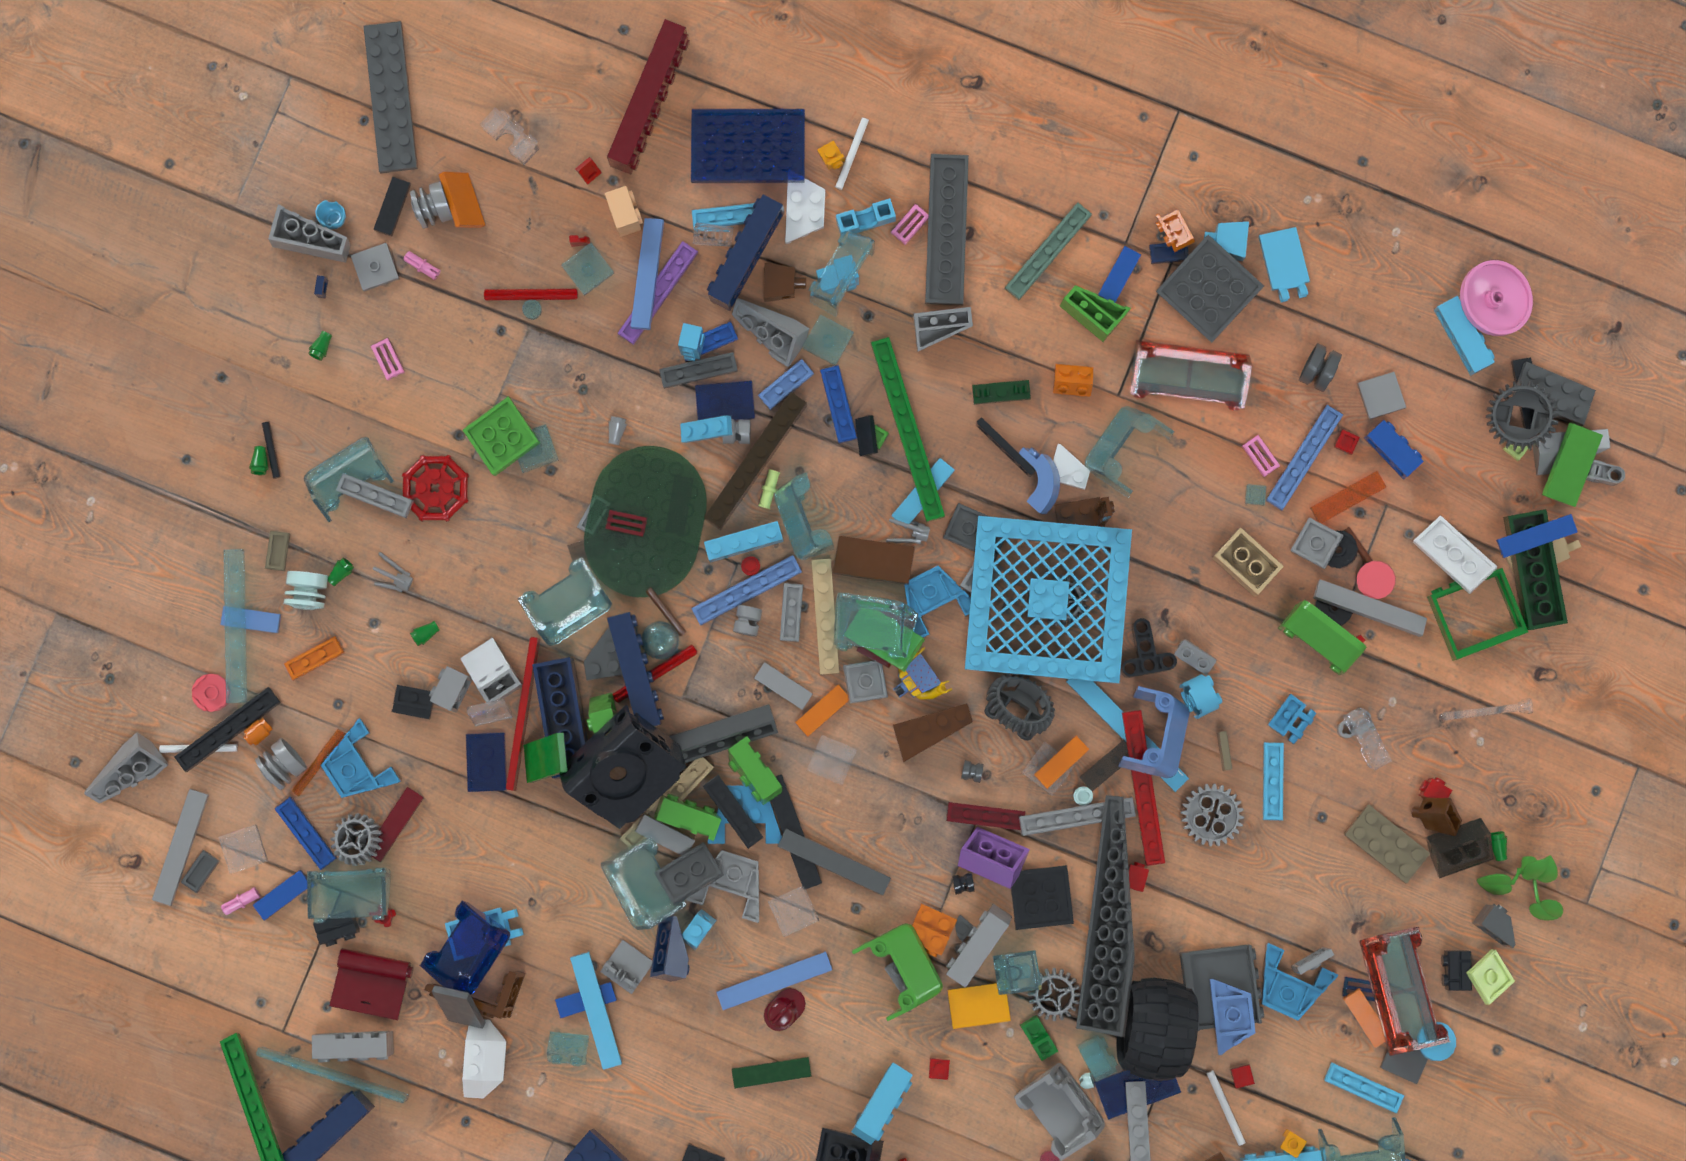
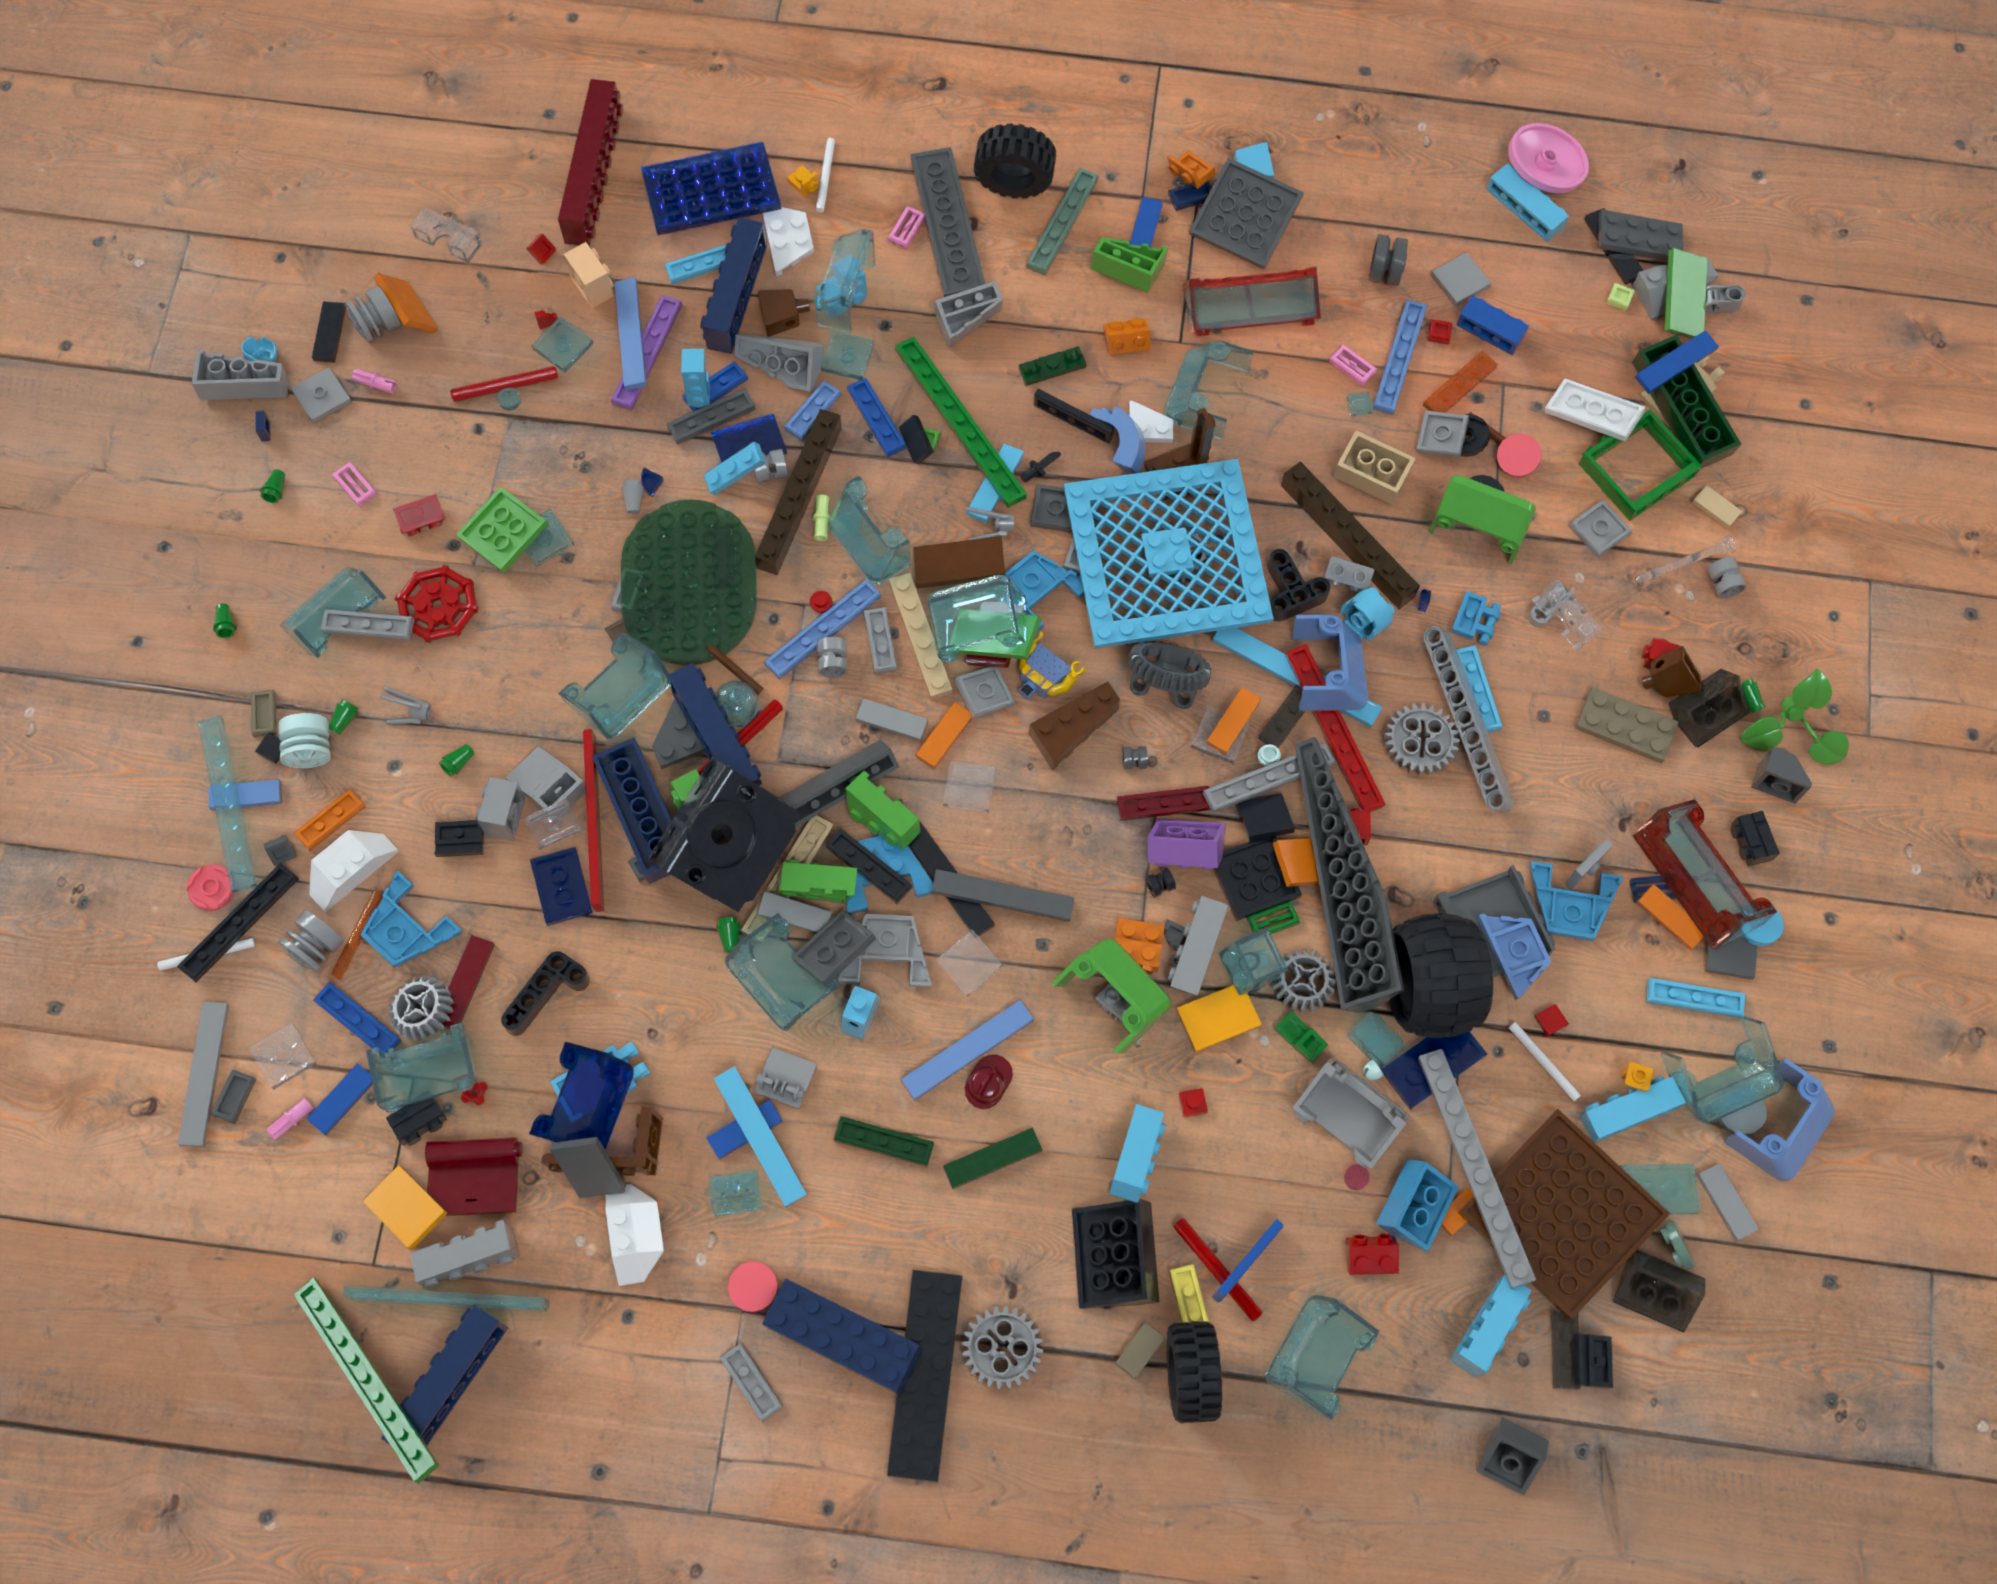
camera: 20 degrees left, 15 degrees down
(131, 764) = (124, 992): light grey wedge -> none
(257, 732) = (275, 916): orange brick -> none
(270, 676) = (279, 850): none -> dark grey tile
(271, 450) = (236, 608): black bar -> none
(277, 584) = (269, 748): none -> black tile
(314, 996) = (405, 1207): none -> light orange tile
(321, 701) = (347, 865): none -> white wedge
(390, 97) = (305, 228): dark grey plate -> none
(436, 404) = (419, 515): none -> red bracket
(450, 851) = (542, 995): none -> black beam
(545, 758) = (630, 851): green tile -> none
(564, 1124) = (753, 1287): none -> coral tile
(609, 837) = (729, 932): none -> green cone
(611, 520) = (667, 580): dark red tile -> none
(634, 418) = (650, 481): none -> clear blue tile
(670, 953) = (833, 1042): slope -> none
(691, 1037) = (883, 1141): none -> dark green tile
(697, 240) = (676, 285): clear slope -> none
(743, 541) = (806, 576): medium azure brick -> none
(872, 217) = (872, 217): medium azure arch -> none
(963, 486) = (1037, 468): none -> black piece
(1018, 194) = (1015, 161): none -> black tyre
(1045, 944) = (1288, 905): none -> green tile
(1064, 850) = (1265, 817): none -> black tile
(1077, 895) = (1297, 861): none -> orange tile
(1208, 618) = (1349, 534): none -> dark brown brick
(1224, 751) = (1412, 668): dark tan tile -> none
(1251, 817) = (1474, 726): none -> light grey beam
(1254, 690) = (1424, 600): none -> clear blue tile
(1285, 262) = (1316, 177): medium azure tile -> none
(1370, 608) = (1529, 484): light grey tile -> none
(1424, 662) = (1600, 528): none -> light grey tile
(1490, 977) = (1794, 835): yellowish green tile -> none
(1515, 737) = (1726, 576): none -> light grey wheel
(1527, 398) = (1615, 237): dark grey piece -> none
(1531, 668) = (1717, 507): none -> tan tile

